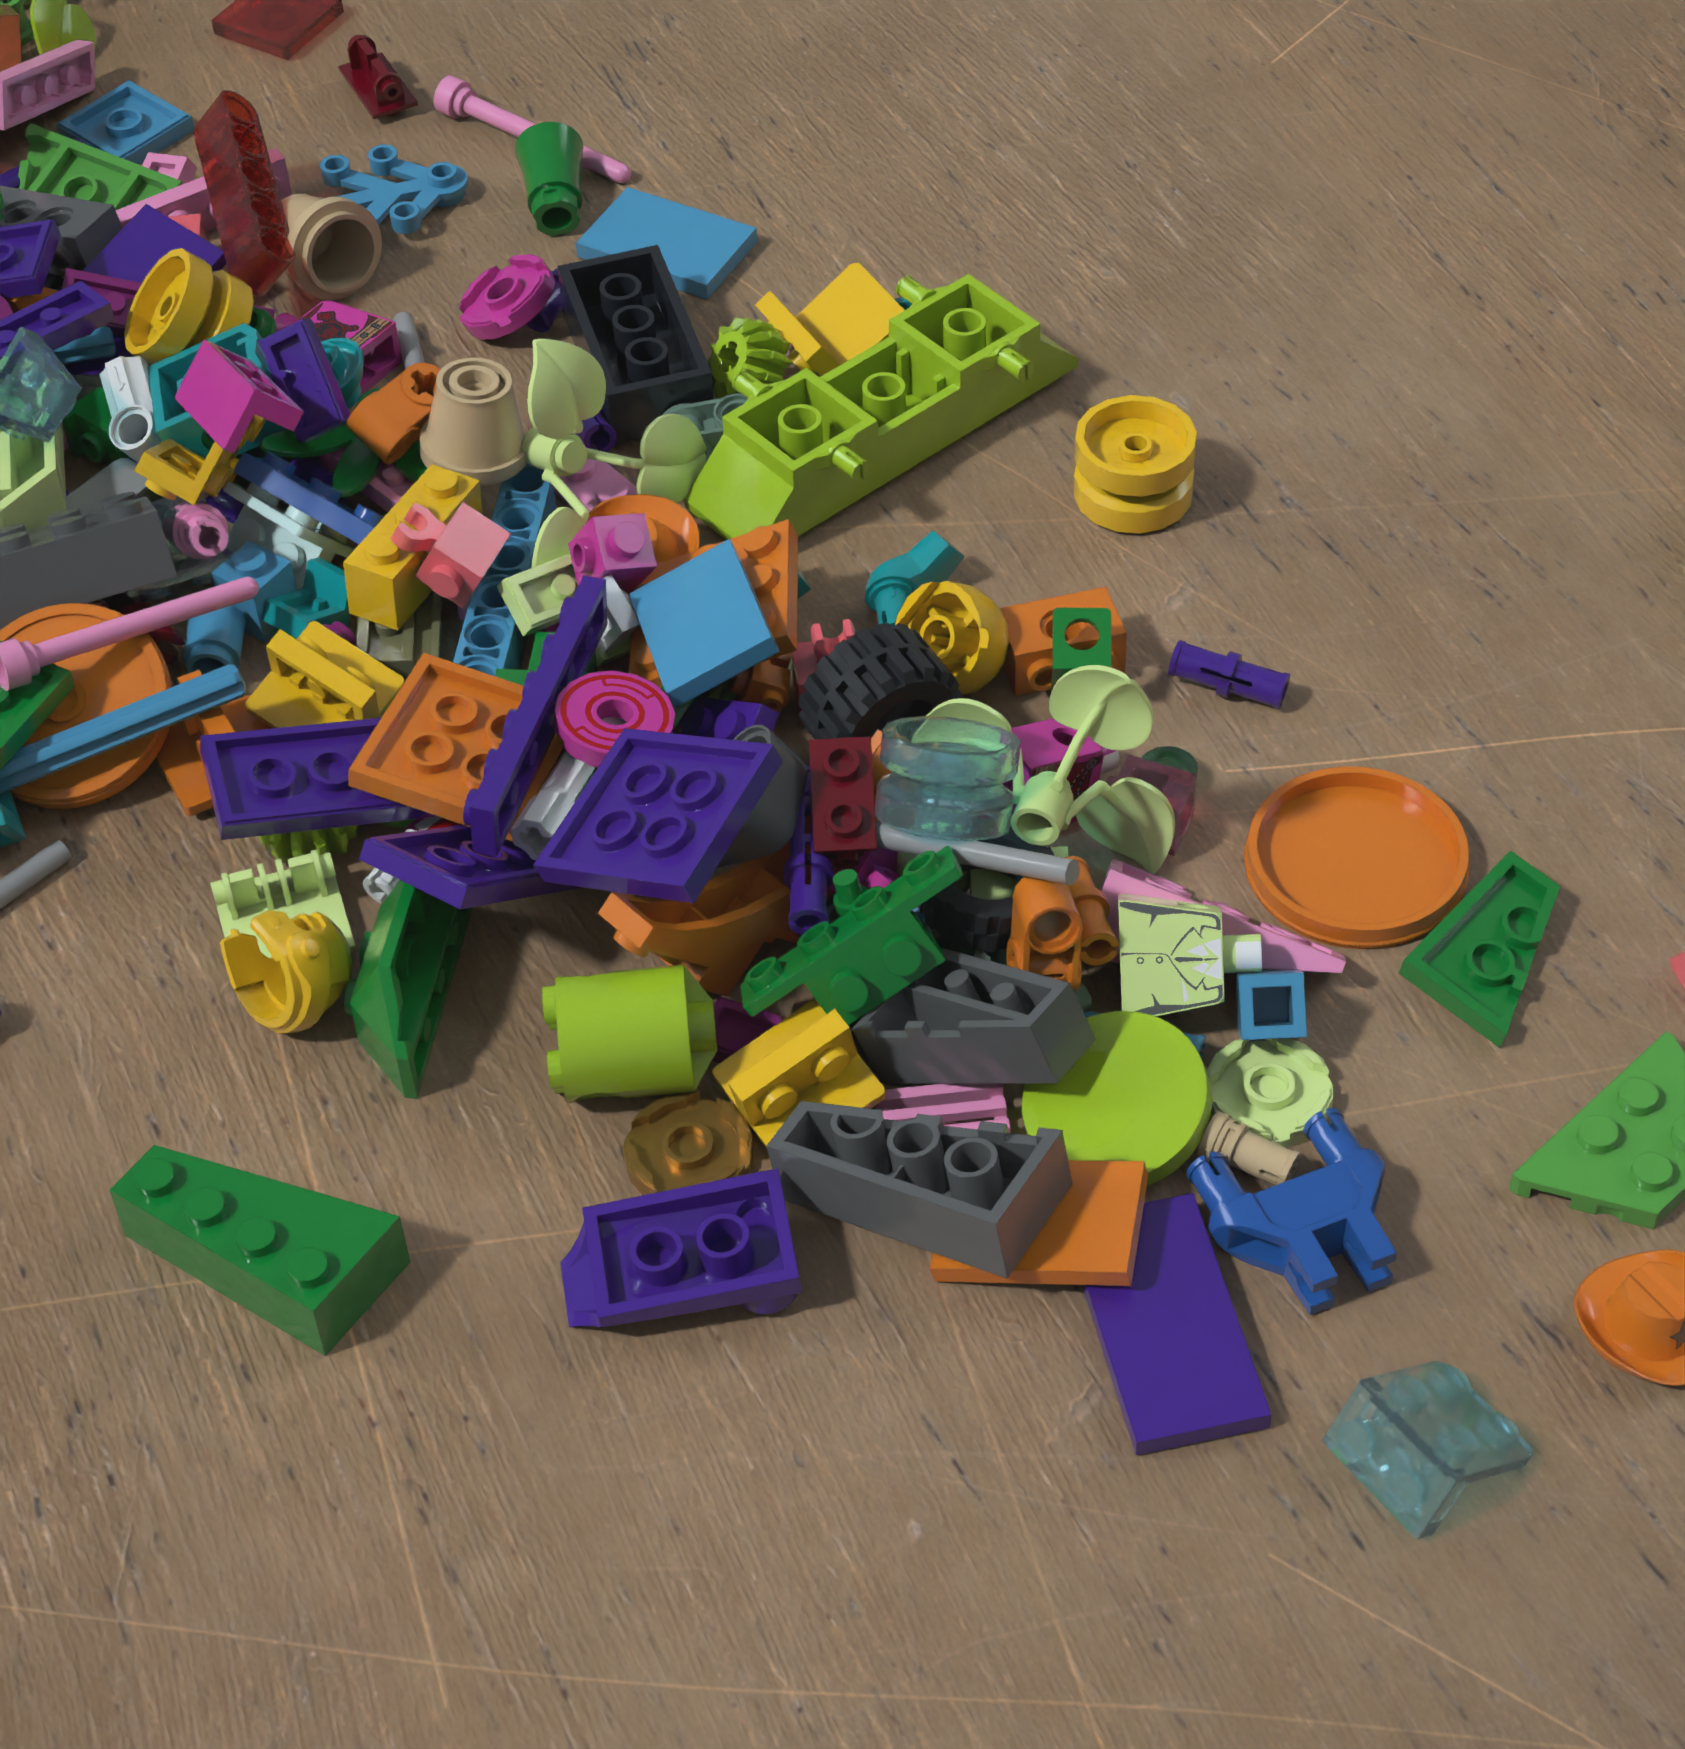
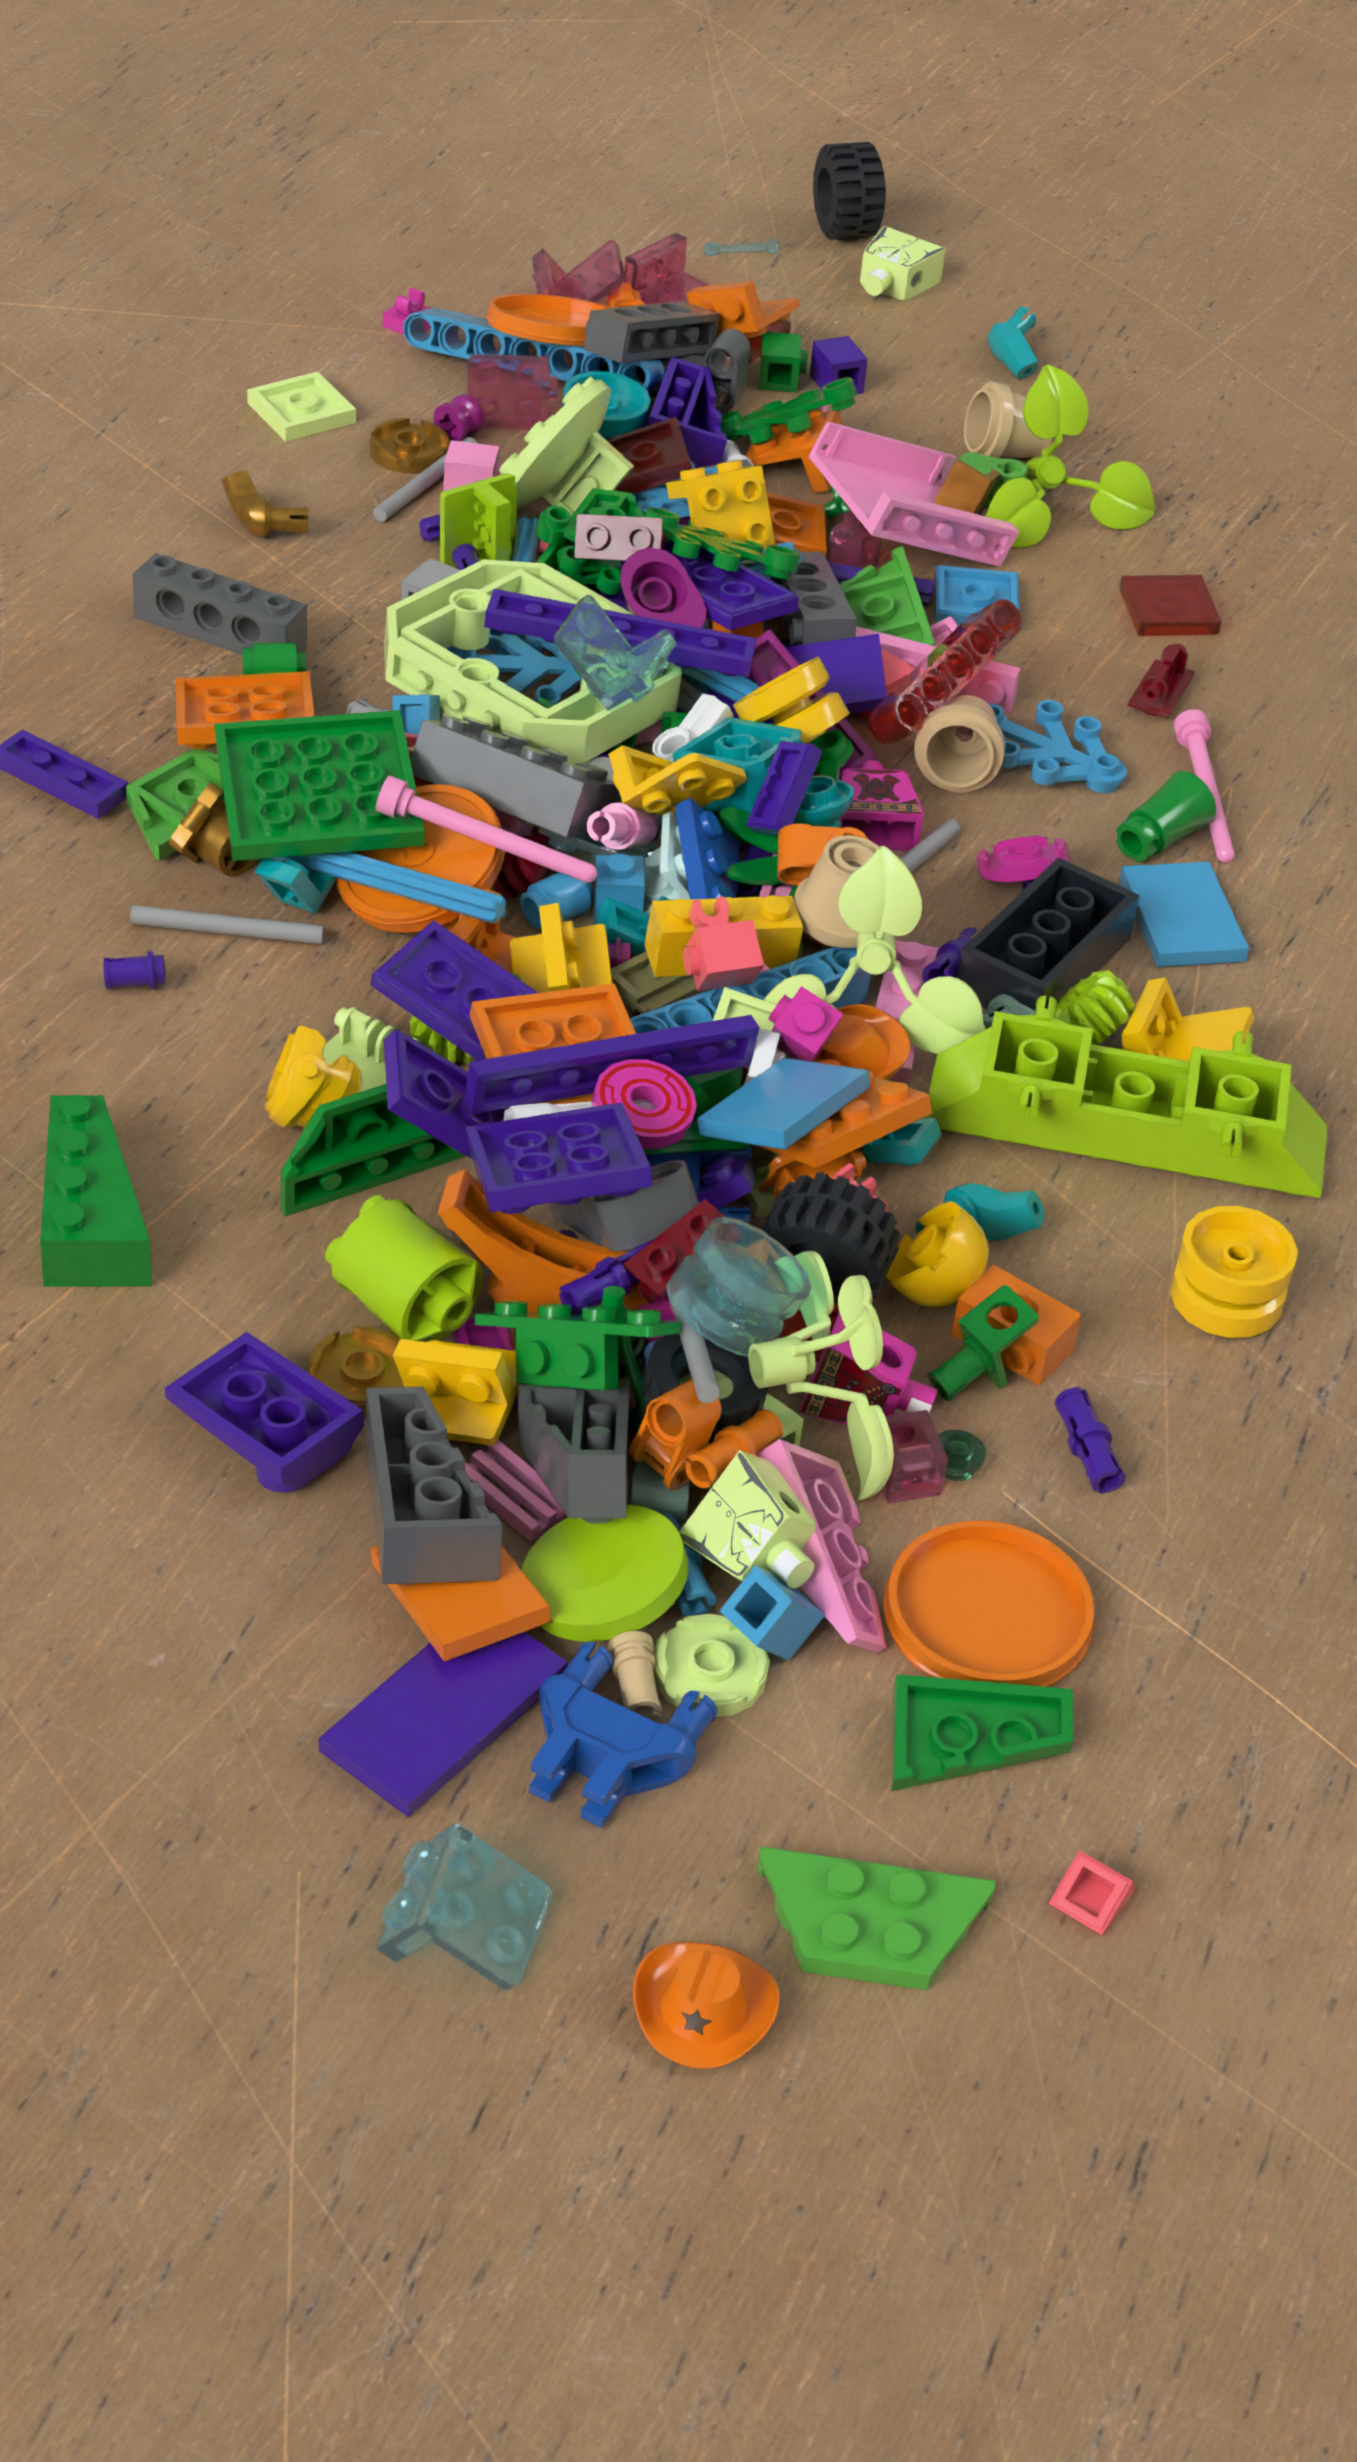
camera: 45 degrees right, 5 degrees down
(227, 391) = (712, 752): dark pink panel -> none

